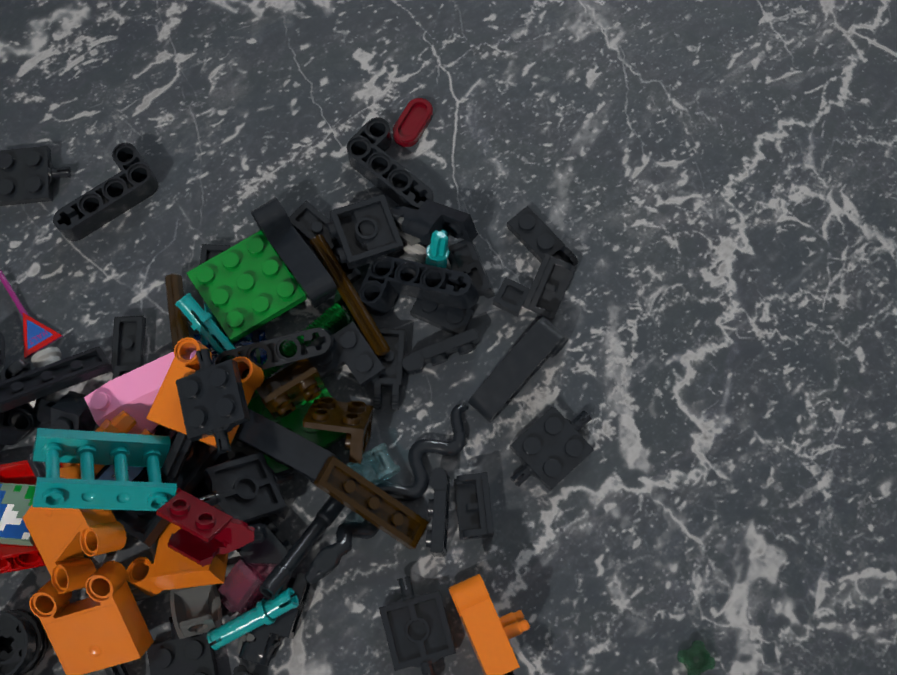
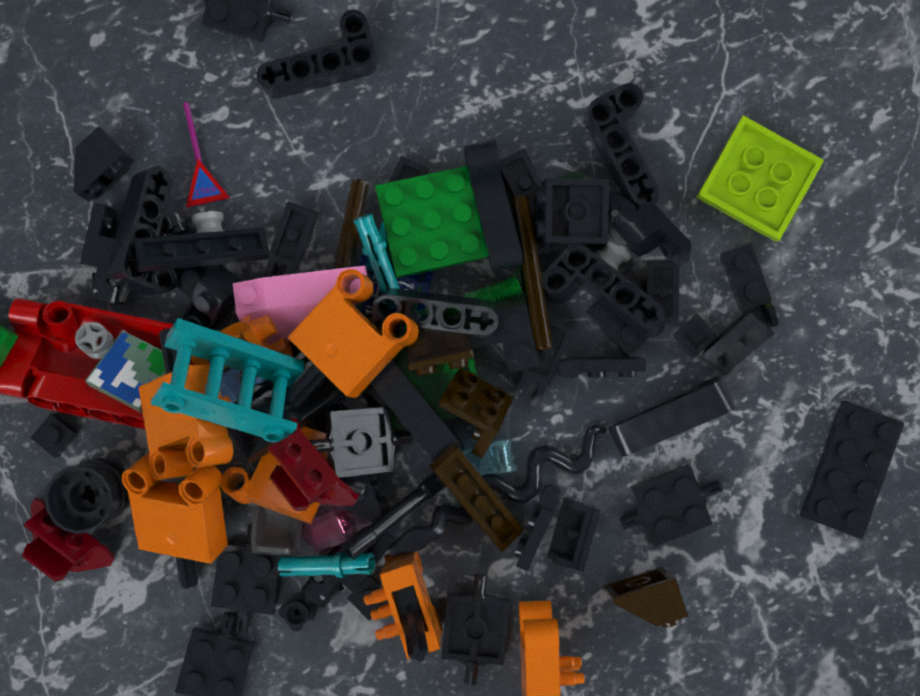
camera: 20 degrees right, 15 degrees up
(213, 400) = (360, 351): black plate -> none
(307, 642) = (357, 598): none -> black plate
(341, 621) = (409, 604): none -> orange piece
(412, 122) = (667, 99): dark red tile -> none
(438, 251) = (640, 265): teal axle -> none
(513, 154) = (760, 179): none -> lime plate
(563, 532) = (650, 596): none -> dark brown slope
(695, 358) = (852, 469): none -> black plate

